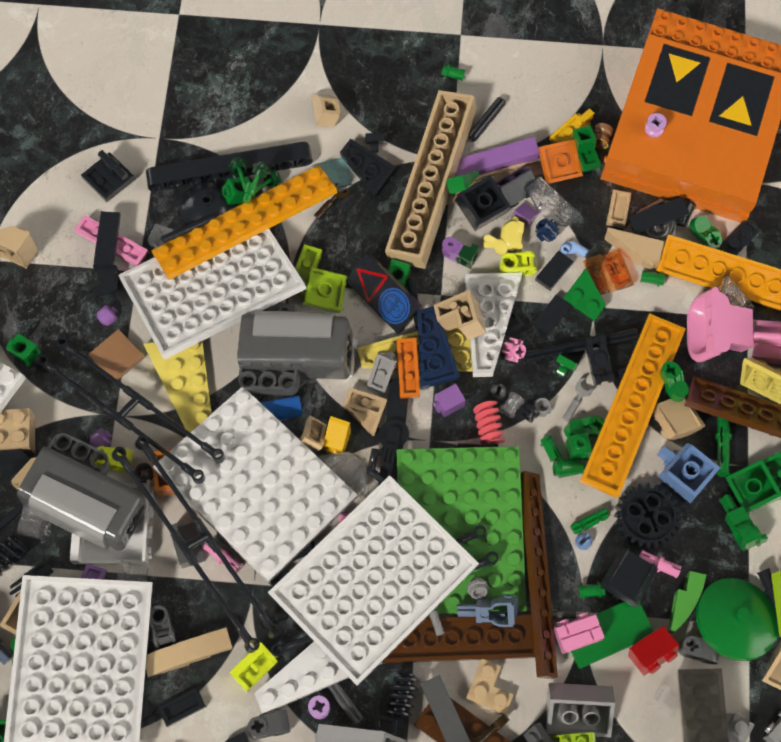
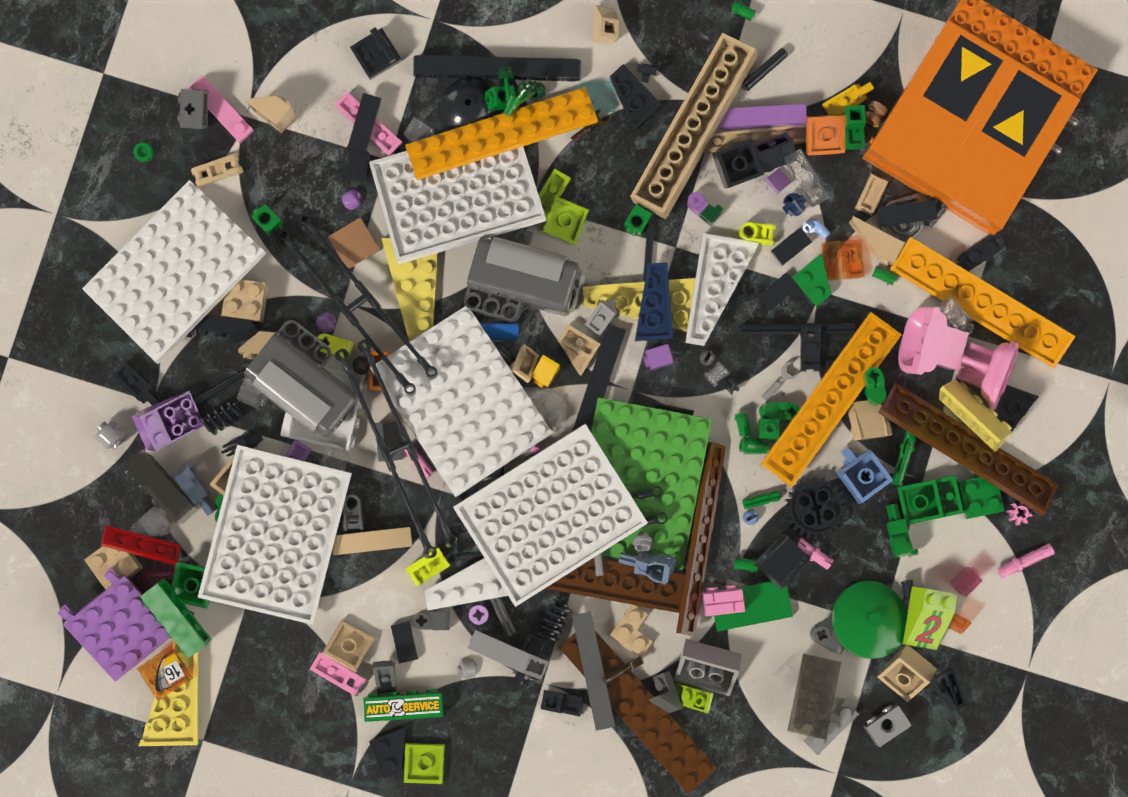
camera: 10 degrees right, 15 degrees up
(182, 707) = (358, 587): black tile -> none
(186, 229) = (444, 130): black bar -> none
(383, 292) = (619, 236): black tile -> none
(392, 436) = (598, 380): black piece -> none
(408, 368) = (626, 318): orange plate -> none
(461, 182) = (721, 139): green slope -> none
(461, 312) = (690, 277): tan brick -> none
(487, 423) = (690, 388): coral piece -> none
(509, 239) = (755, 205): light yellow animal -> none
(513, 349) = (731, 320): bright pink gear -> none
(545, 403) = (748, 378): light grey plate -> none
(565, 365) = (777, 345): green tile -> none
(651, 128) = (923, 129): lavender wheel -> none
(654, 651) = (787, 631): red brick -> none
(686, 599) = (828, 593): bright green slope -> none
(705, 232) = (949, 239): green piece -> none

